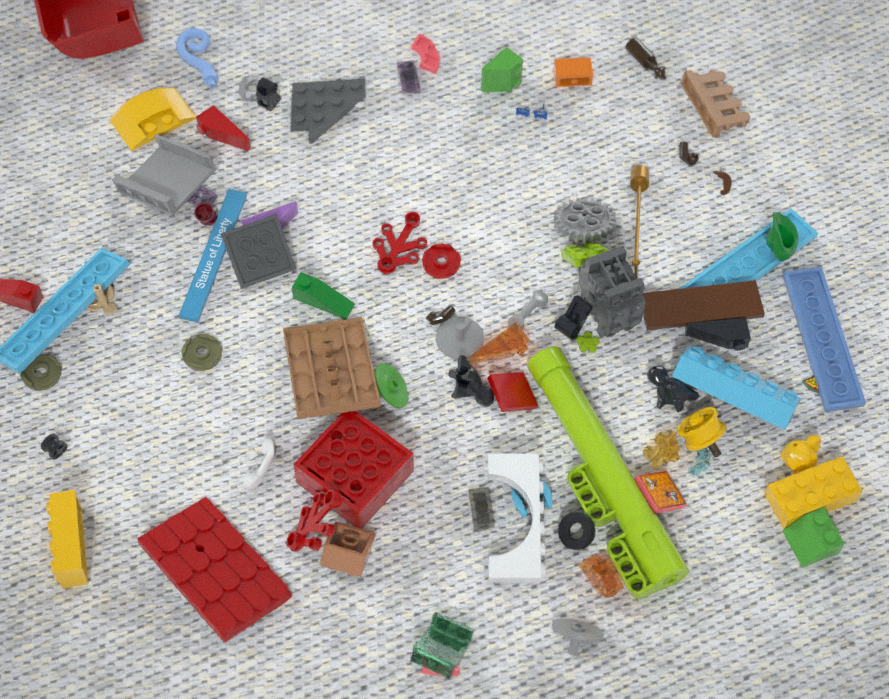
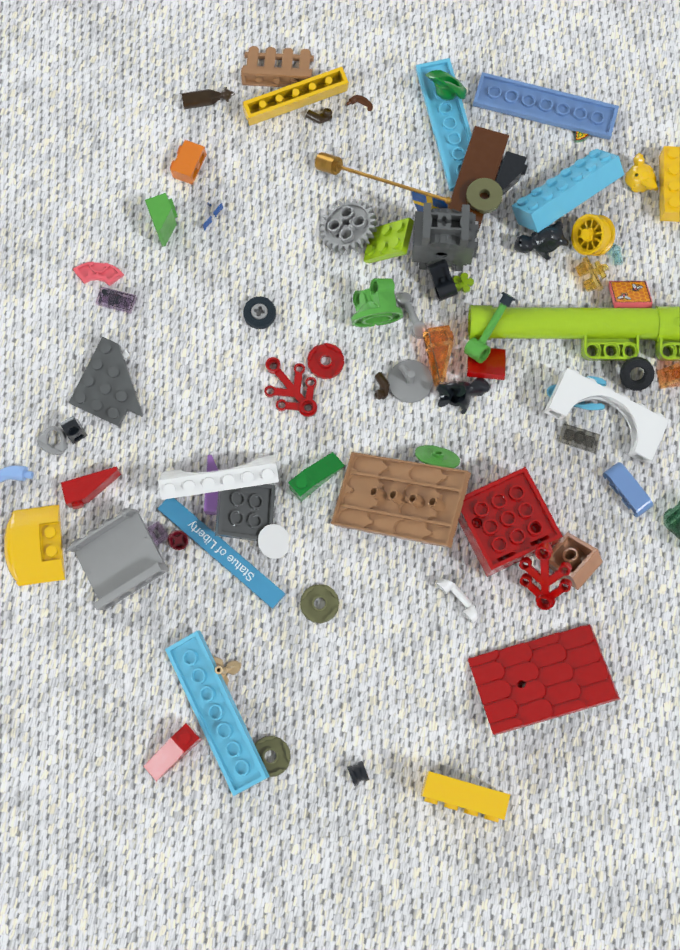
camera: 60 degrees left, 15 degrees up
(242, 289) = (273, 541): none -> white sticker
(259, 193) = (180, 483): none -> white arch
(448, 571) = (628, 488): none -> medium blue beam
(452, 194) = (253, 306): none -> black bush
(511, 269) = (376, 304): none -> bright green piece
(520, 371) = (477, 348): none -> bright green piece
(687, 306) = (488, 186): none -> olive tile
(691, 123) = (295, 96): none -> yellow brick

